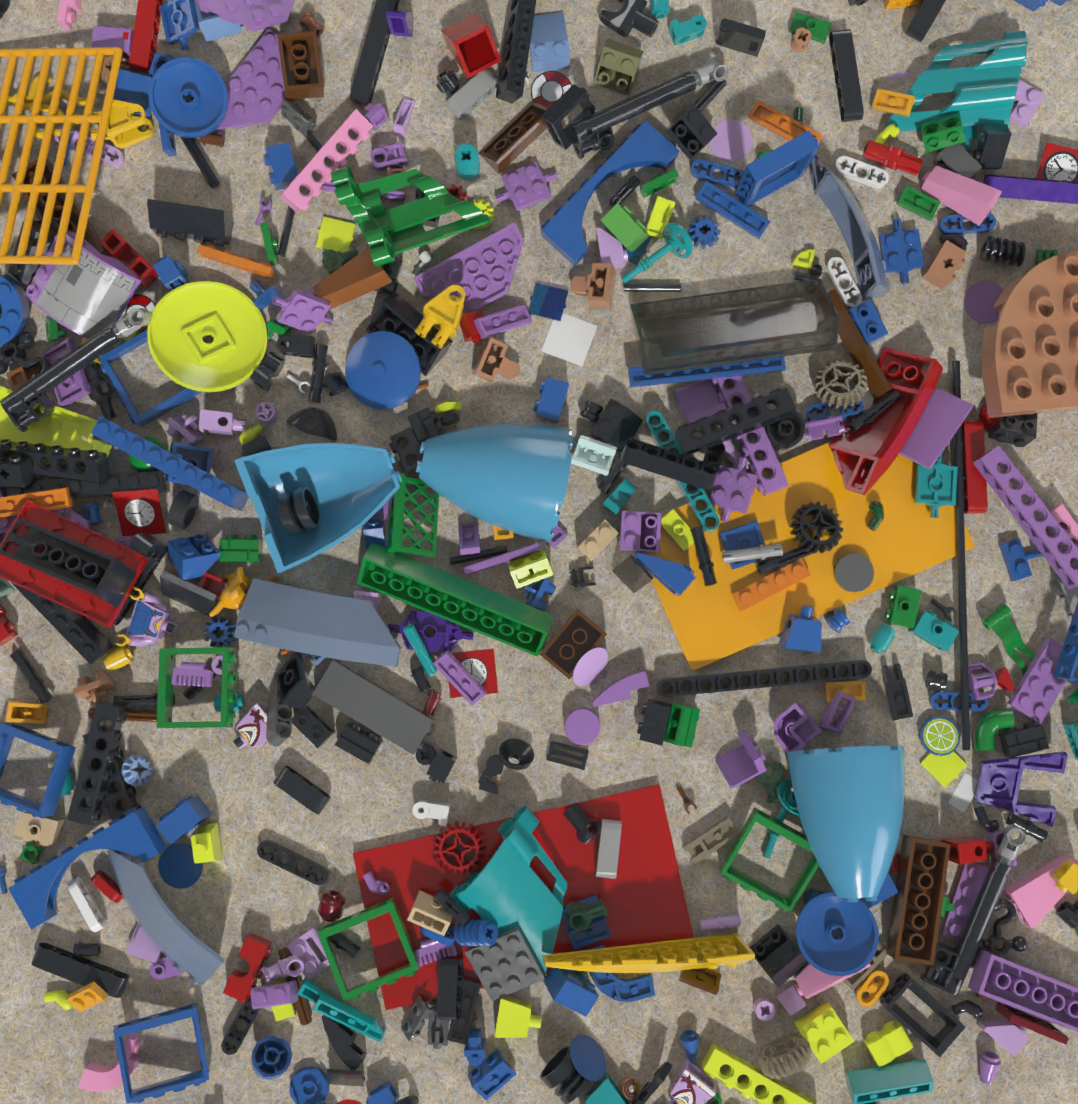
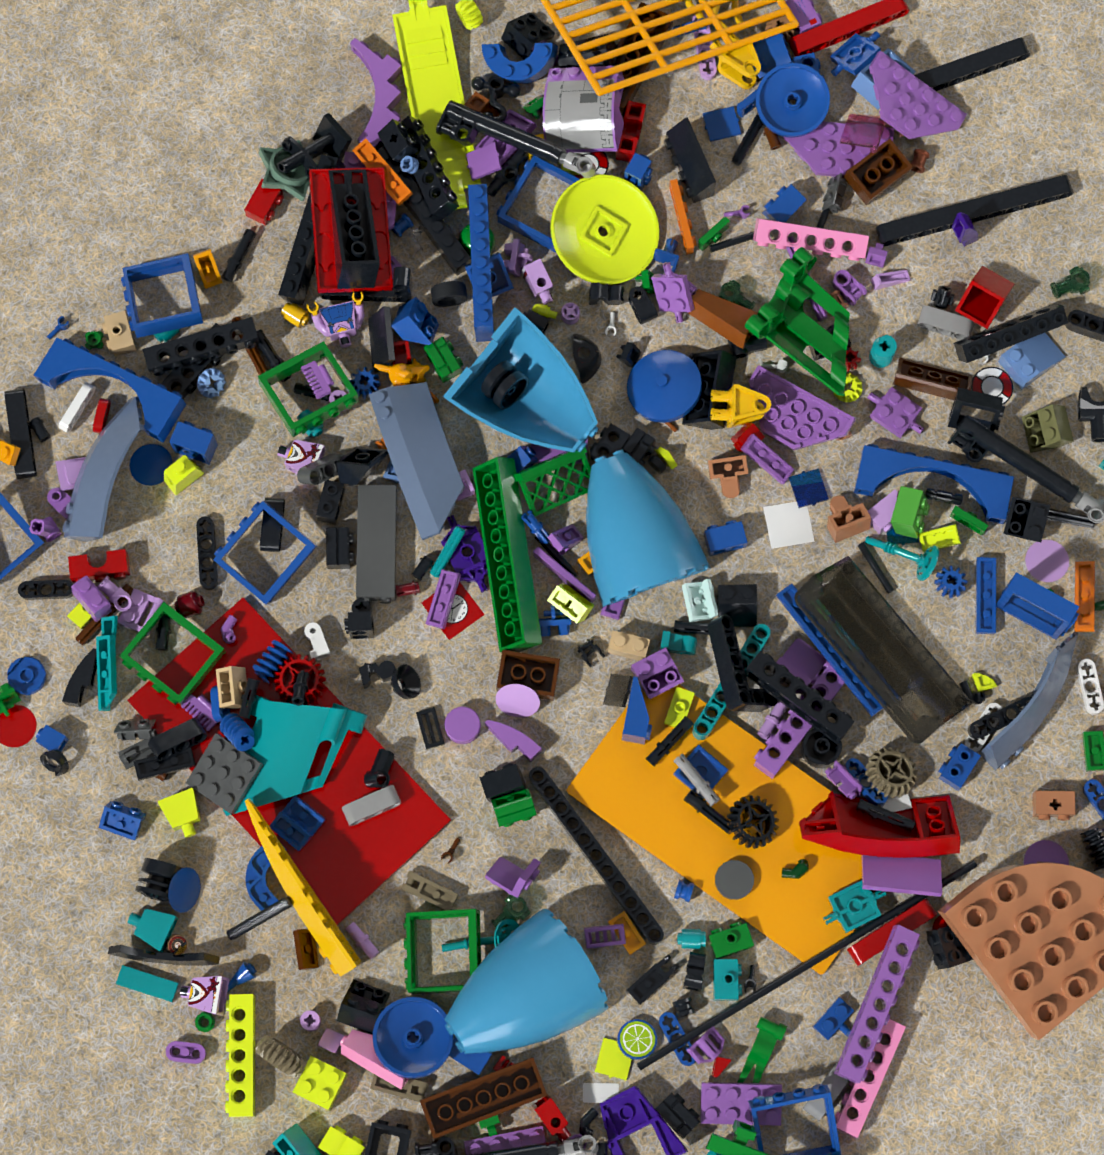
camera: 55 degrees right, 10 degrees down
(38, 474) = (409, 164): none -> medium blue bush
(77, 405) = (483, 161): none -> medium lavender piece
(94, 690) = (259, 312): nougat hips -> none
(139, 512) = (426, 261): red sticker -> none
(171, 175) = (721, 124): none -> blue piece
(183, 997) = (46, 528): none -> medium lavender piece
(256, 55) = (863, 131): none -> clear pink piece
(271, 1057) = (36, 626): blue cylinder -> none
(302, 783) = (290, 570): none -> blue window
(319, 365) = (636, 332): black pin -> none
(335, 235) = (755, 282): neon yellow piece -> none
(345, 1077) = (53, 698): black piece -> none
(428, 864) = (271, 660): none -> blue piece
(445, 559) = (535, 527): none -> blue axle
(470, 856) = (300, 688): none -> black axle
(475, 1047) = (139, 790): blue hips -> none
(571, 989) = (236, 839): blue brick -> none
(586, 914) = (307, 816): clear green connector -> none
(591, 411) = (736, 577): black wheel -> none
(652, 1005) = (259, 918): none -> black axle
(721, 181) = (1000, 553): blue beam -> none
(733, 489) = (742, 732): medium lavender plate -> none
(771, 584) = (680, 814): orange plate -> none
(795, 728) = (570, 904): medium lavender brick -> none
(802, 631) = (656, 863): blue torso -> none
(844, 260) = (1002, 717): none -> black beam
(858, 349) = (934, 766): reddish brown tile -> none
(873, 988) = (382, 1105): light orange plate -> none
(901, 251) = (1042, 761): blue plate -> none
(909, 651) = (694, 970): none -> black leg
(955, 239) = (1084, 803): black arm -> none
(988, 725) = (673, 1077): green cylinder -> none

